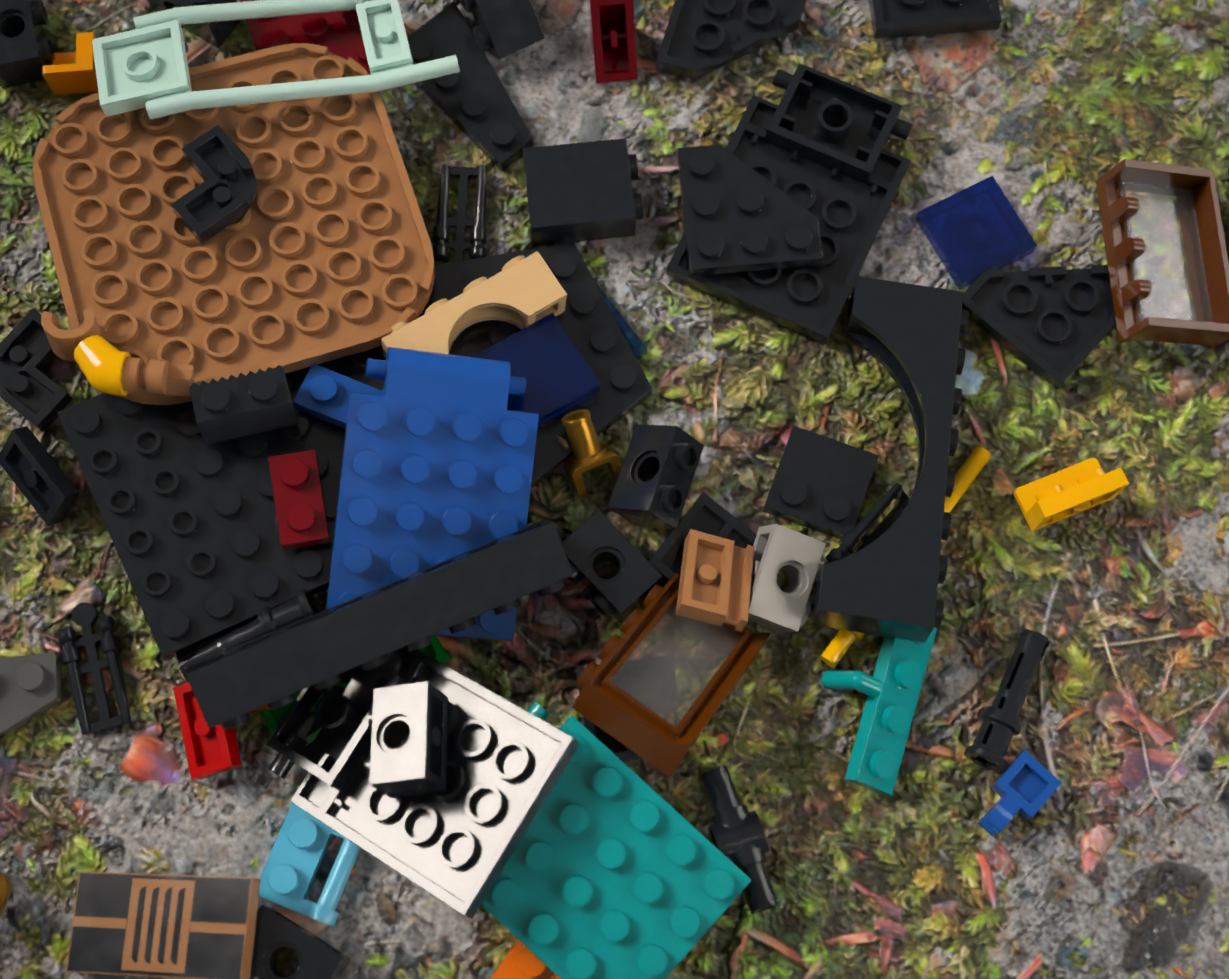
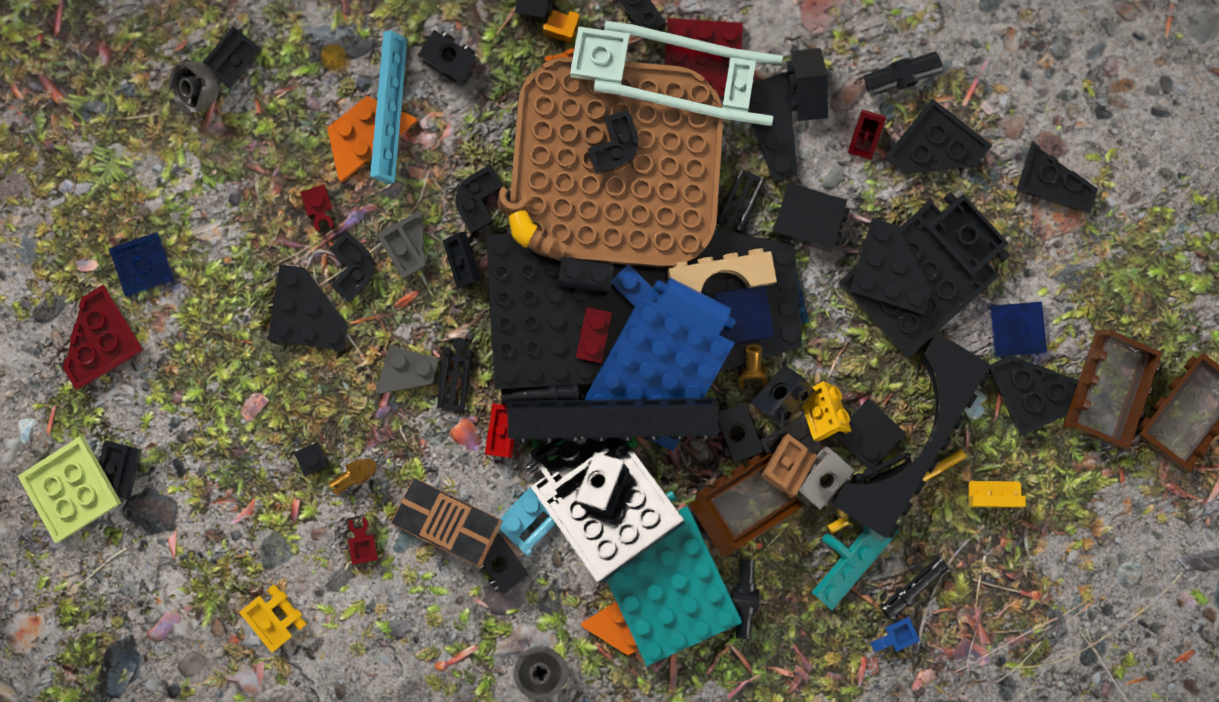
camera: 25 degrees right, 10 degrees up
(735, 473) = (825, 412): none -> yellow bracket

